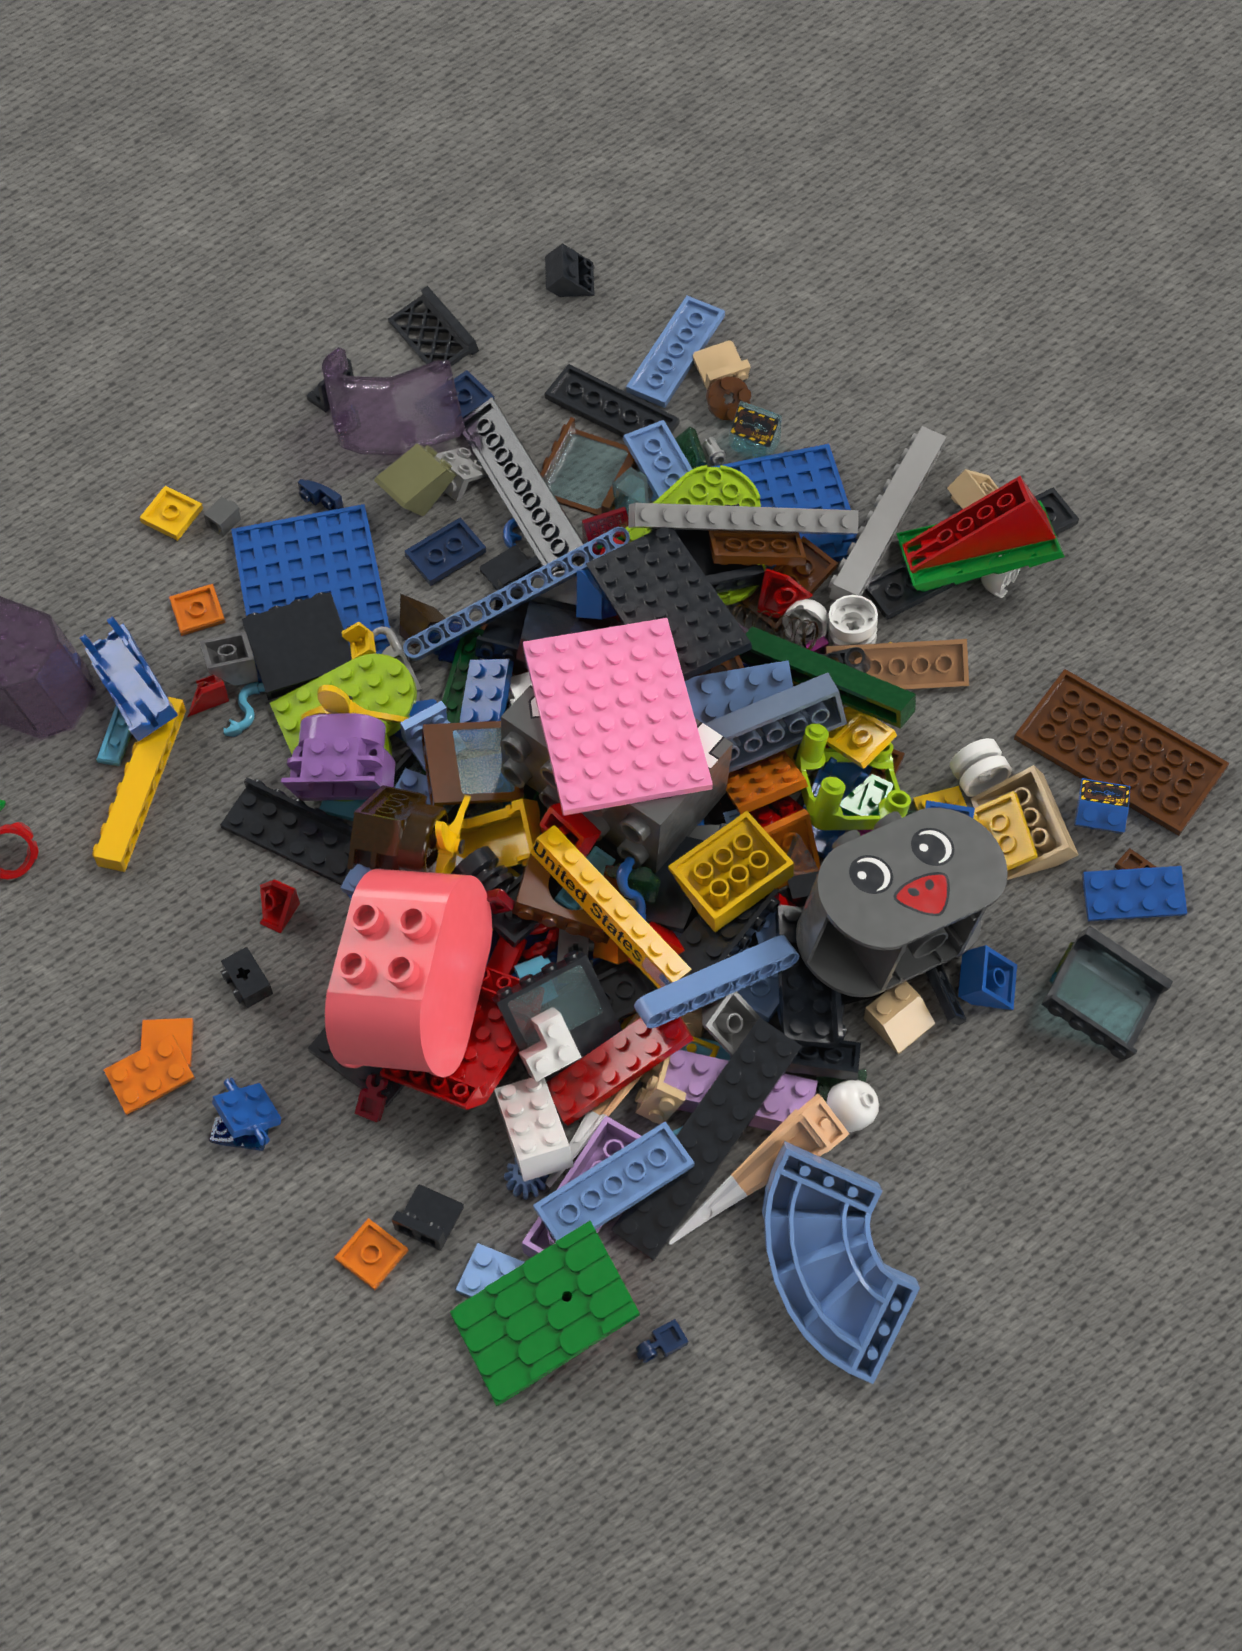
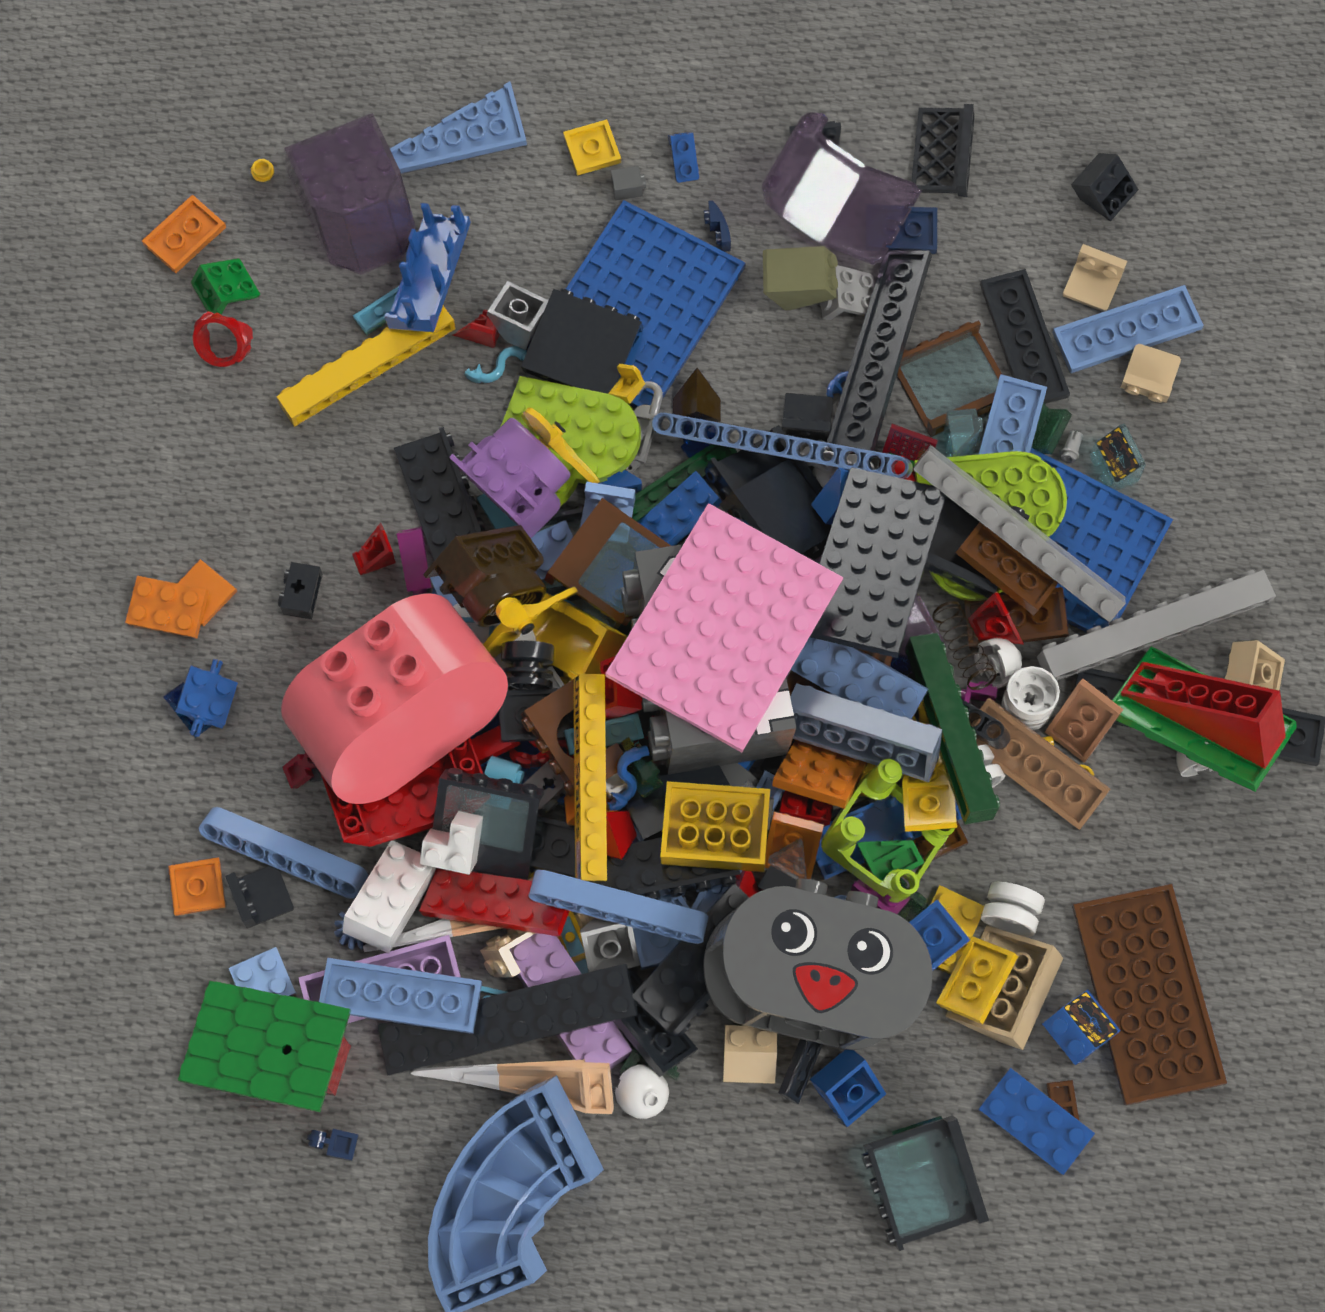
camera: 40 degrees right, 10 degrees up
(68, 565) = (467, 133): none -> medium blue wing
(197, 609) = (538, 248): orange tile -> none
(248, 468) = (684, 156): none -> blue bracket
(315, 885) = (414, 560): none -> magenta slope
(416, 1170) = (283, 852): none -> medium blue beam
(445, 551) = (772, 357): dark blue plate -> none
(499, 901) = (515, 697): dark red plate -> none
(621, 334) = (1094, 278): none -> tan bracket
(724, 386) = (1132, 397): reddish brown plate -> none
(904, 608) = (1083, 720): none -> nougat plate

